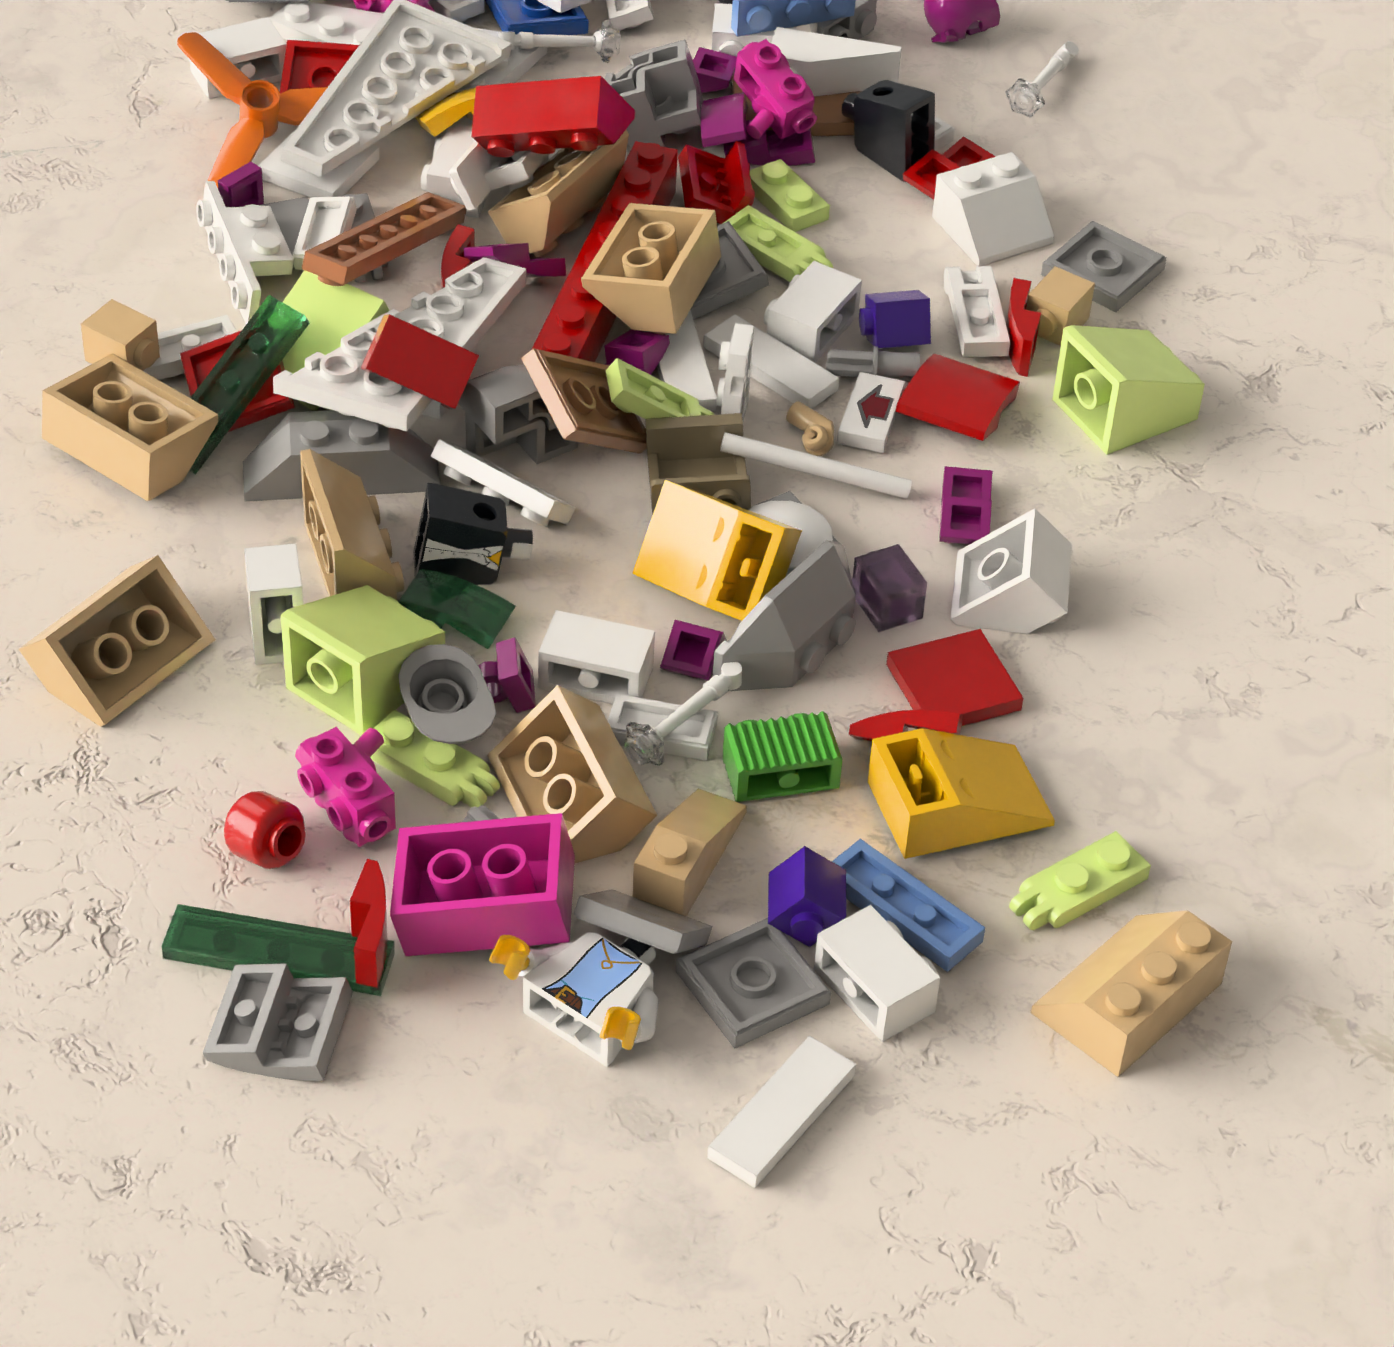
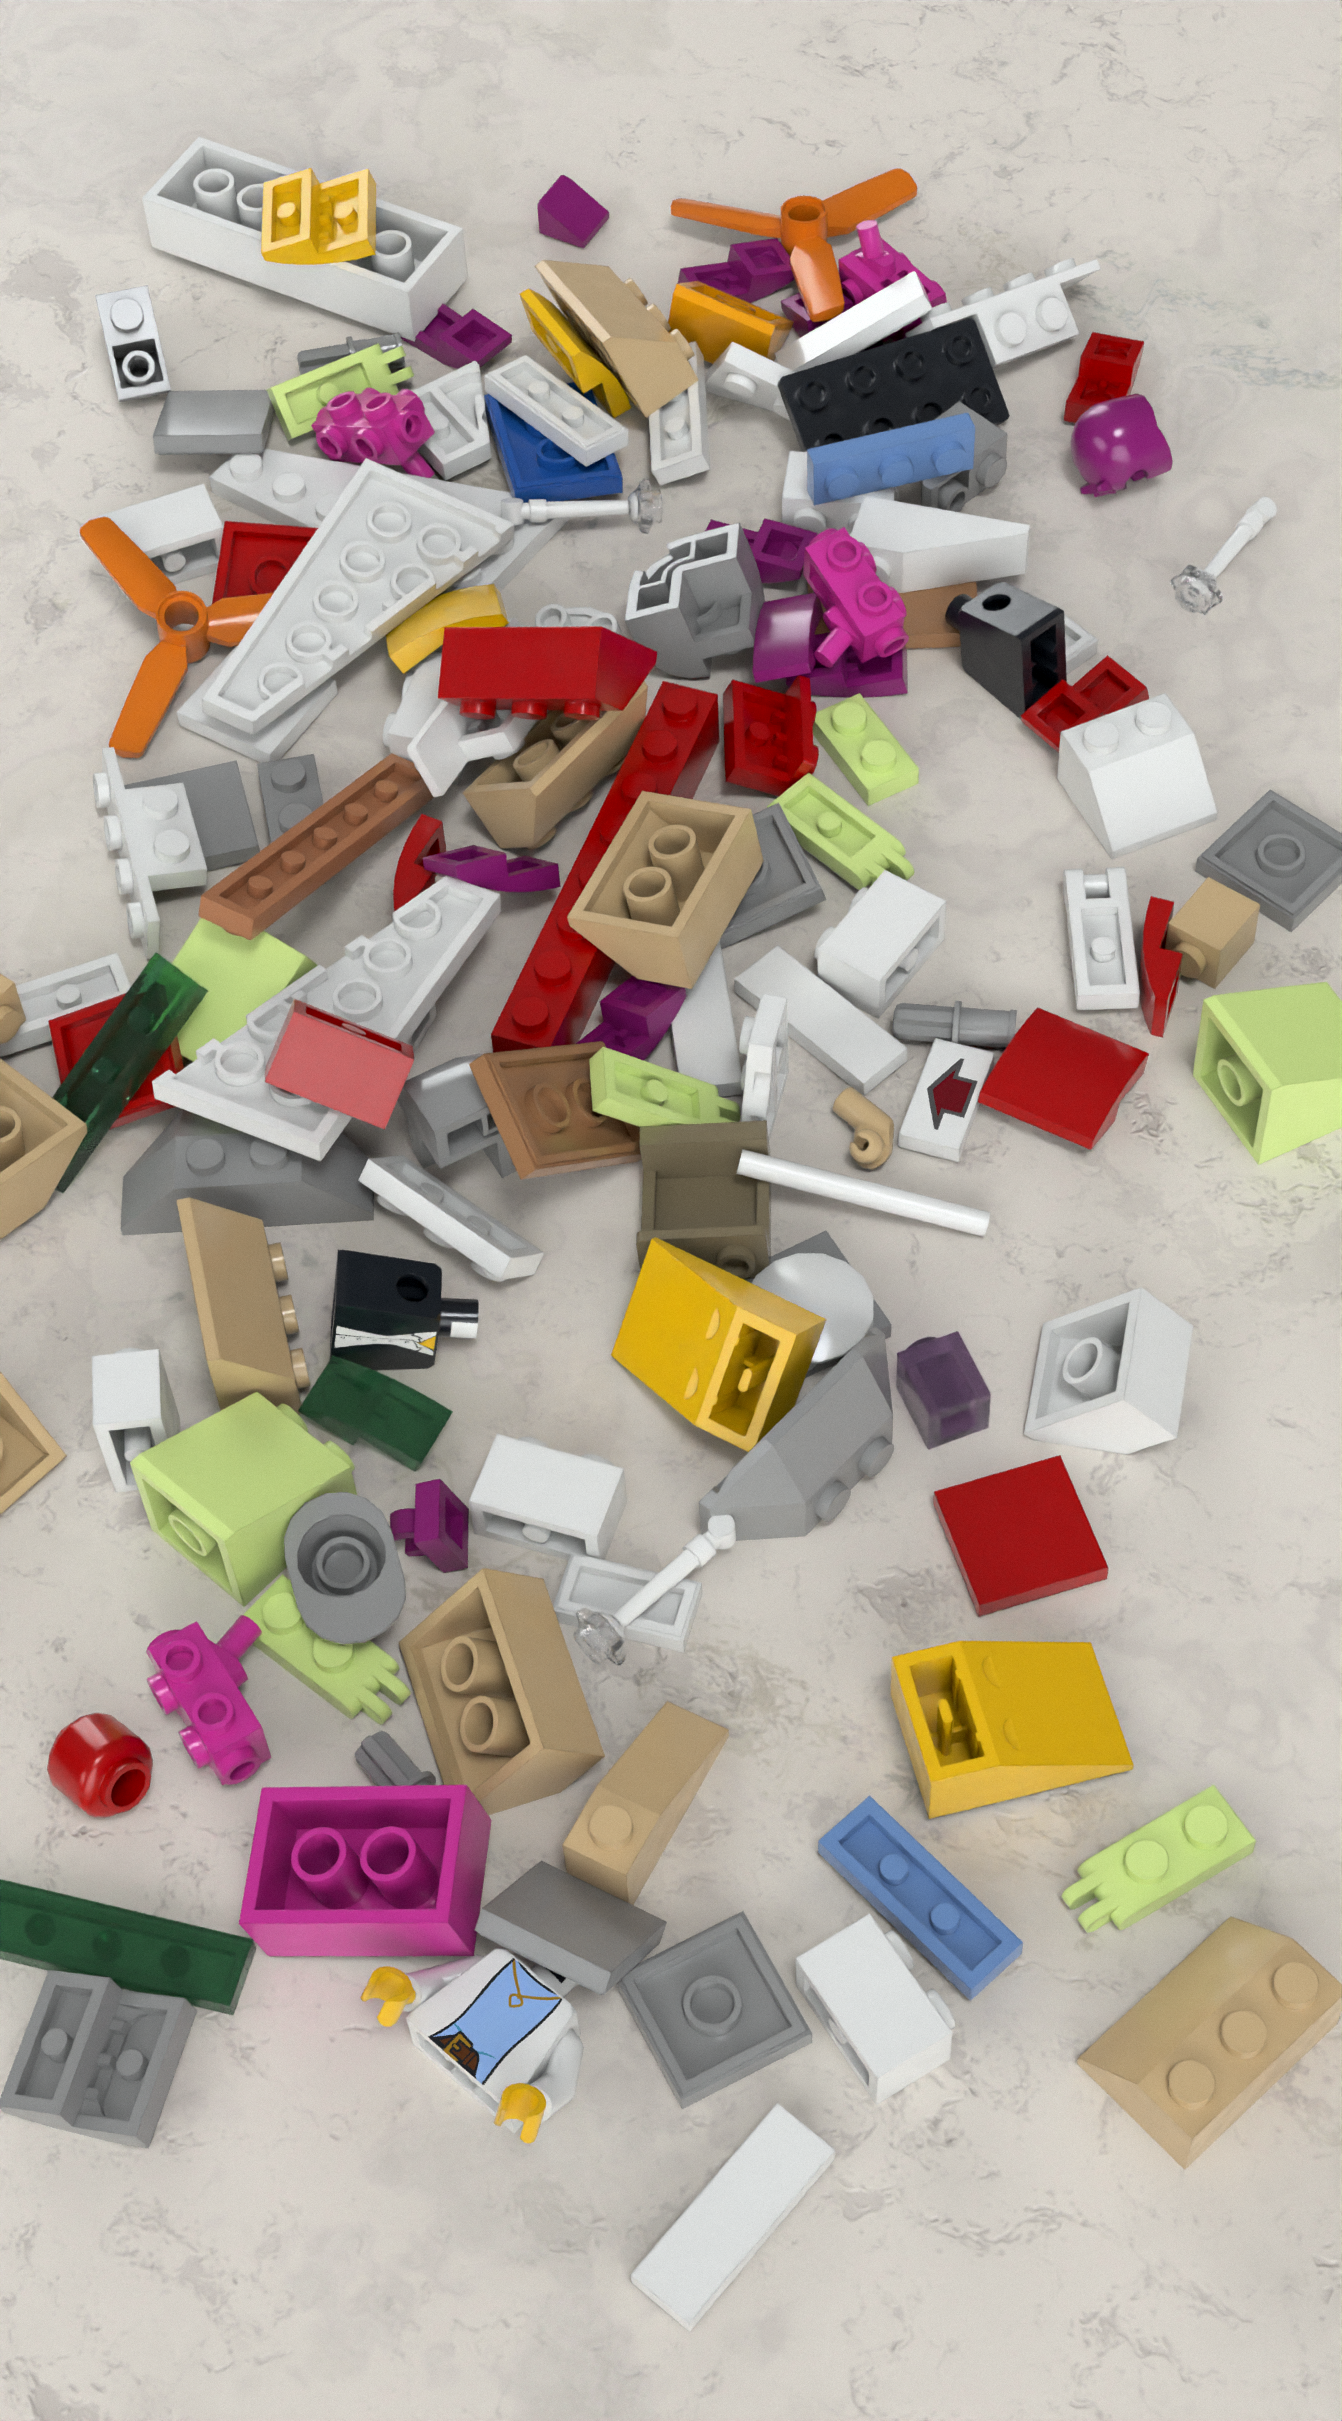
camera: 10 degrees right, 10 degrees up
(242, 186) = (151, 752): magenta tile -> none
(323, 221) = (250, 818): white tile -> none
(369, 924) = (217, 1911): red slope -> none
(691, 650) = (677, 1482): magenta slope -> none
(781, 756) = (778, 1659): bright green brick -> none
(806, 895) = (790, 1891): dark purple brick -> none
(896, 319) = (989, 958): dark purple brick -> none
(900, 721) = (926, 1618): red slope -> none
(965, 505) = (1058, 1254): magenta slope -> none

